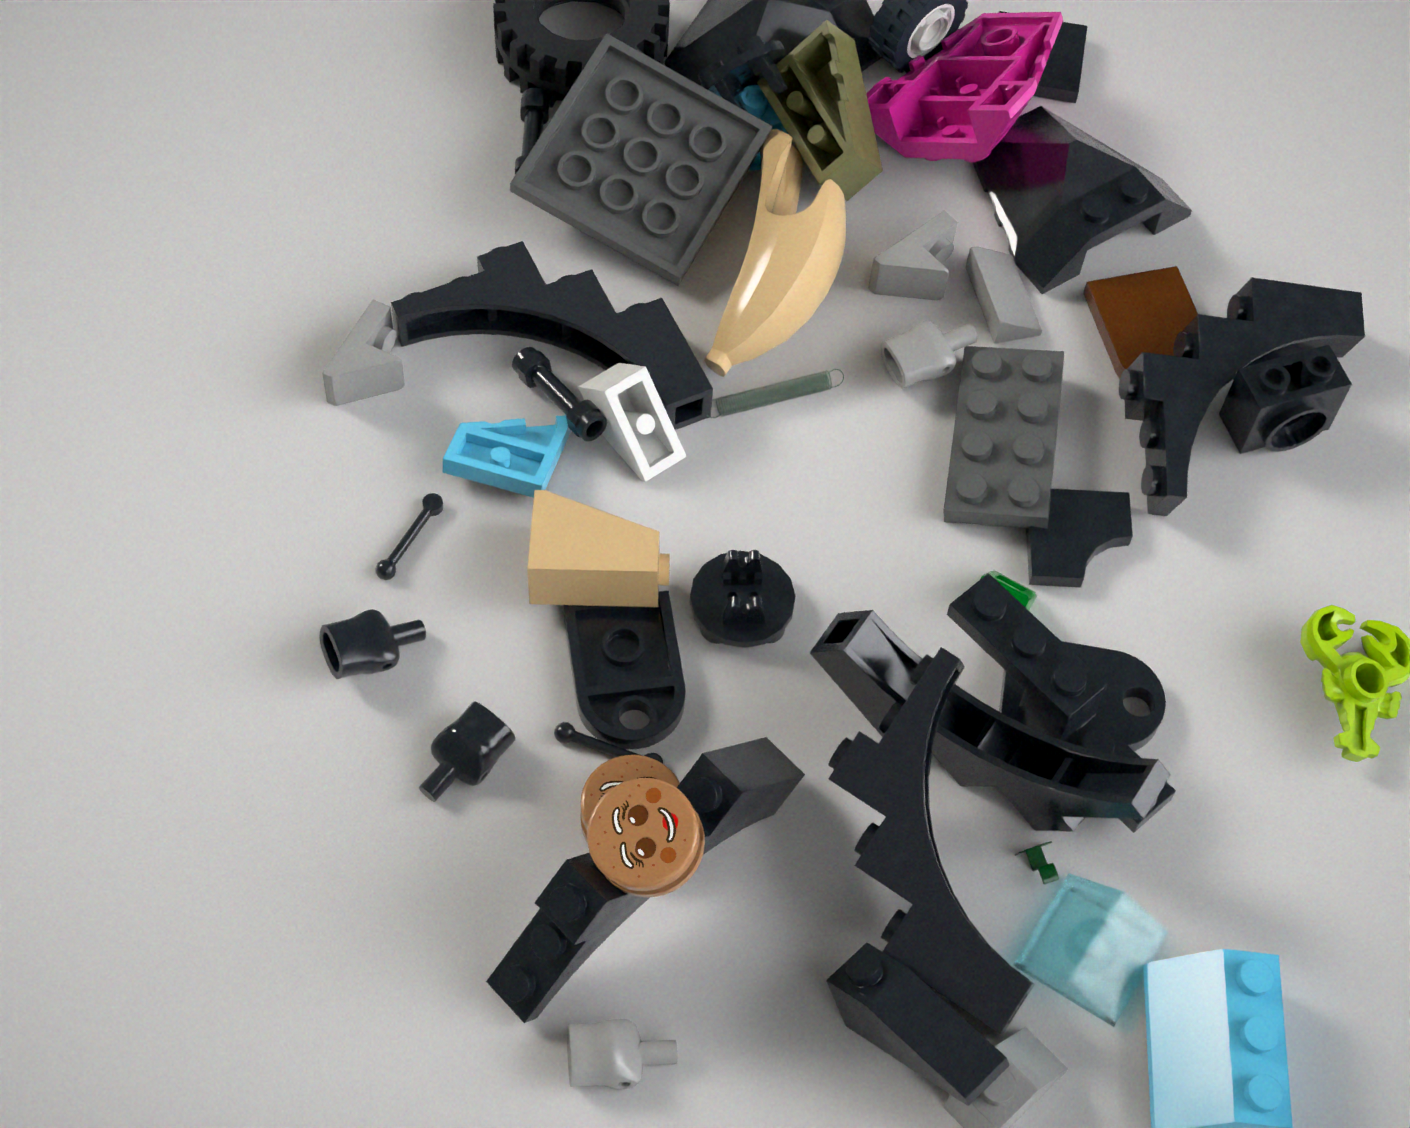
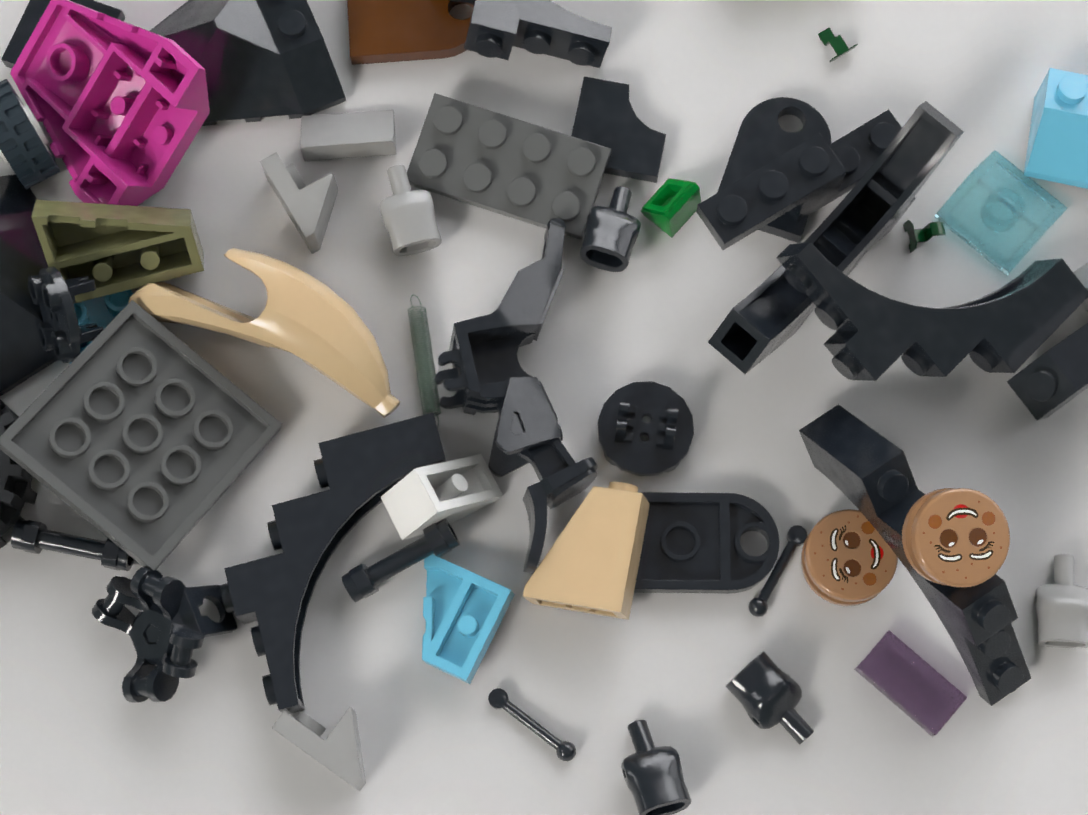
camera: 75 degrees left, 15 degrees up
(472, 207) = (162, 631): none -> black piece
(501, 896) = (911, 683): none -> clear purple tile
(733, 463) = (492, 381): none -> black piece
(954, 536) = (610, 234): none -> black piece
(1249, 745) = (837, 43): none -> dark green piece

